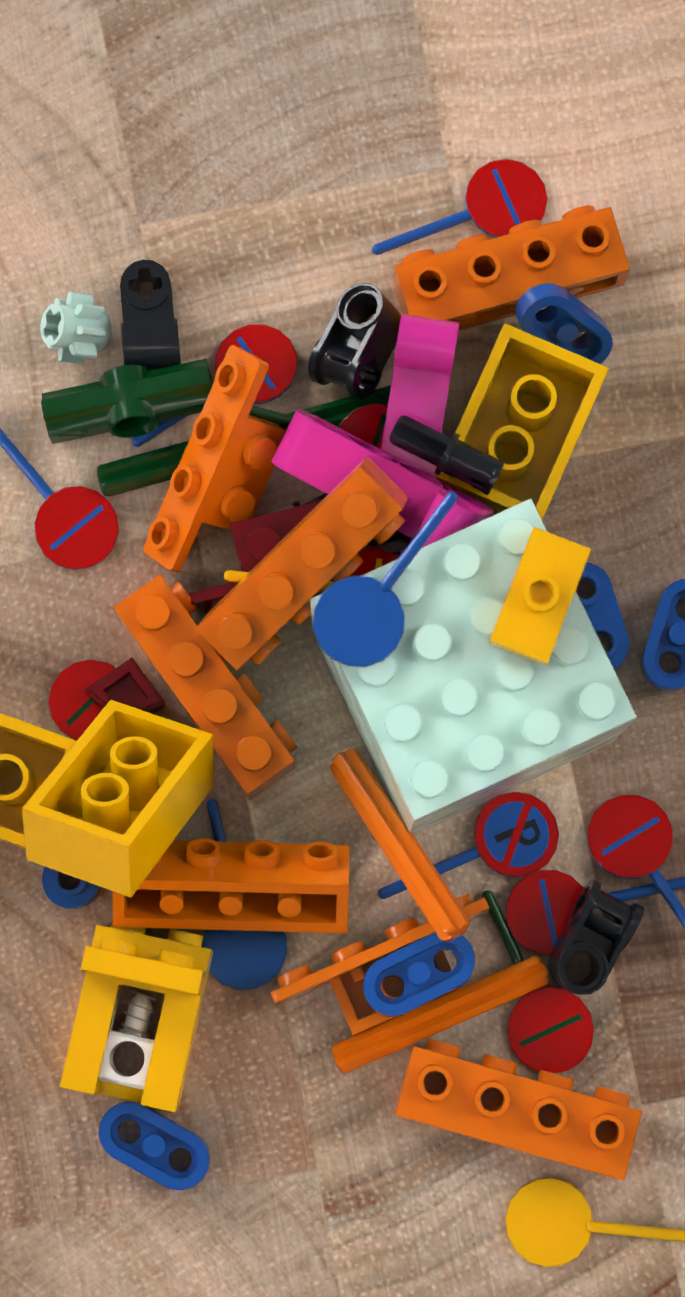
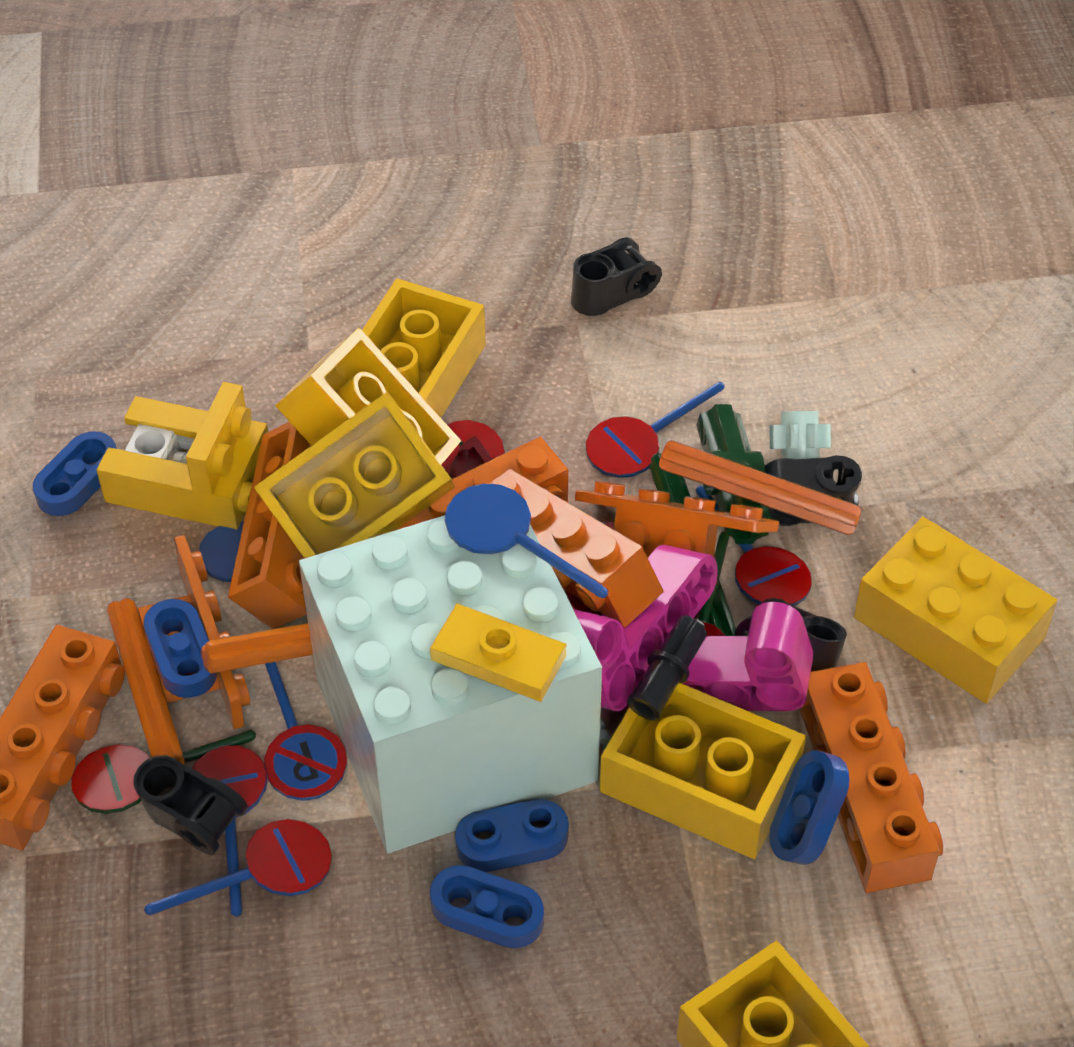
camera: 95 degrees right, 30 degrees down
(180, 367) = (760, 487): none -> orange axle
(253, 789) = (356, 481): none -> yellow brick
(306, 177) = (954, 609): none -> yellow brick
(495, 199) = (953, 784): red piece -> none

